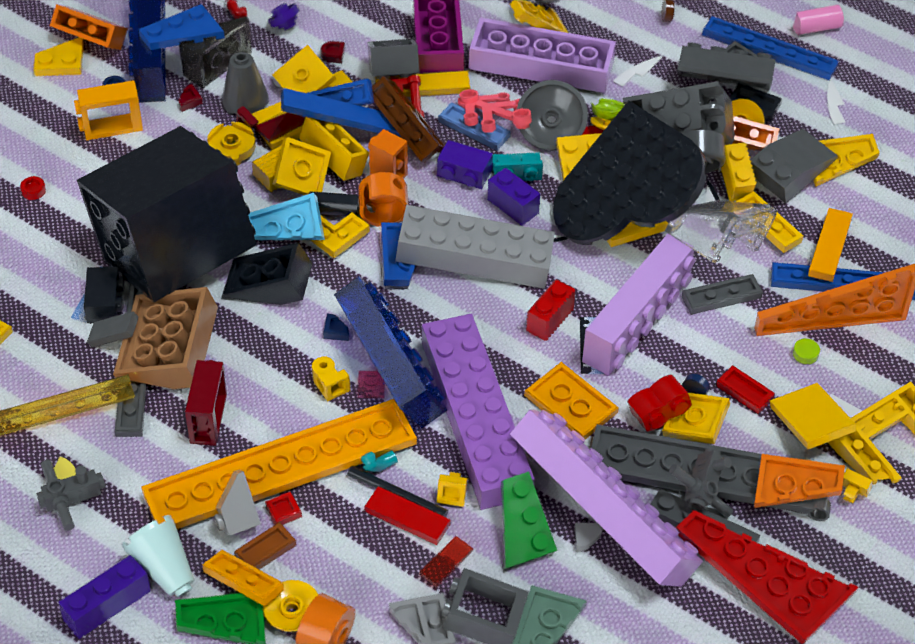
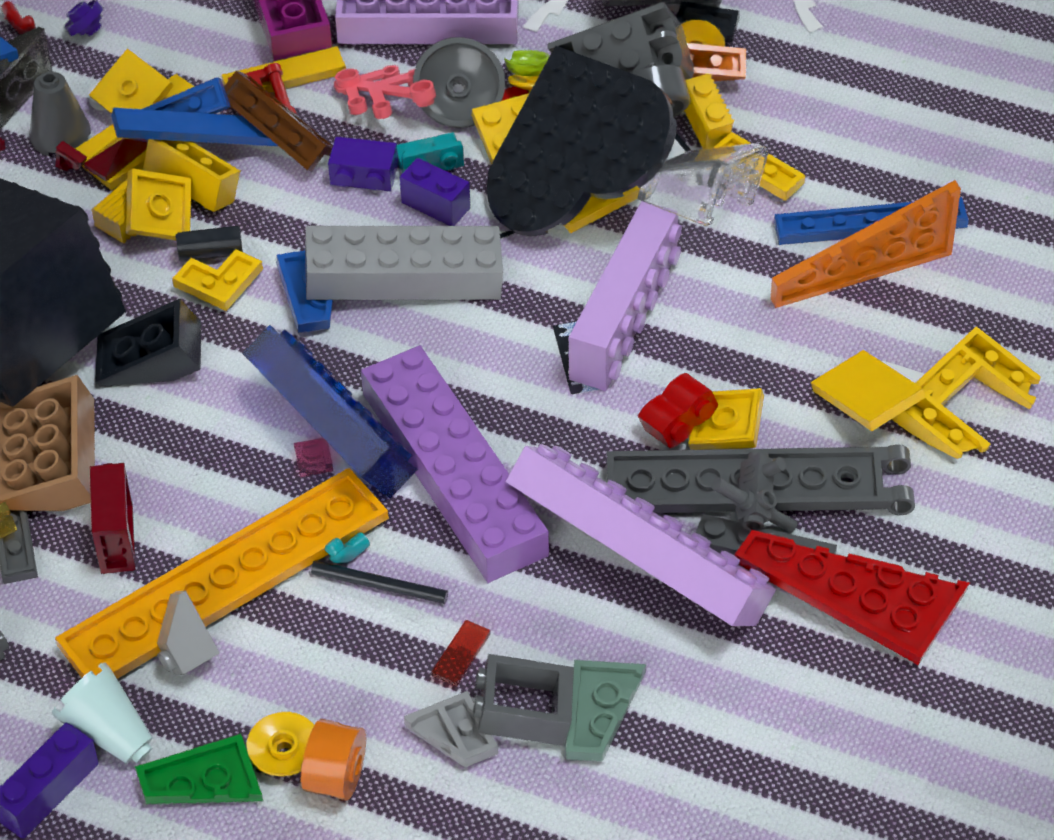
camera: 10 degrees left, 0 degrees up
(237, 132) = (61, 175): yellow plate -> none
(243, 577) = (213, 722): light orange tile -> none
(266, 546) = (230, 682): dark orange tile -> none
(283, 509) = (241, 630): red tile -> none
(289, 220) = (160, 273): medium azure wing -> none
(327, 378) = (258, 461): yellow leg -> none
(333, 51) = (158, 52): dark red tile -> none
(335, 329) = (250, 398): dark blue tile -> none
(385, 195) = (275, 221): orange piece -> none
(388, 154) = (265, 173): orange brick -> none
(393, 58) = (240, 46): dark grey brick -> none
(407, 515) = (398, 607): red tile -> none
(452, 489) = (447, 564): yellow tile -> none
(454, 118) = (334, 108): medium blue tile -> none
(524, 522) = (547, 585): green wing -> none
(550, 310) = (515, 323): red brick -> none
(572, 398) = (569, 424): light orange tile -> none
(586, 535) = (626, 586): light grey tile -> none
(696, 384) = (717, 379): dark blue tile -> none
(722, 294) = (721, 265): dark grey tile -> none
(745, 389) = (777, 375): red tile -> none
(791, 164) = (770, 89): dark grey slope -> none
(795, 480) = (866, 470): orange wing -> none
(806, 351) = (840, 314): lime tile -> none
(830, 245) = (840, 180): light orange tile -> none
(851, 153) = (825, 70): yellow wing -> none
(855, 485) = (937, 462): yellow tile -> none

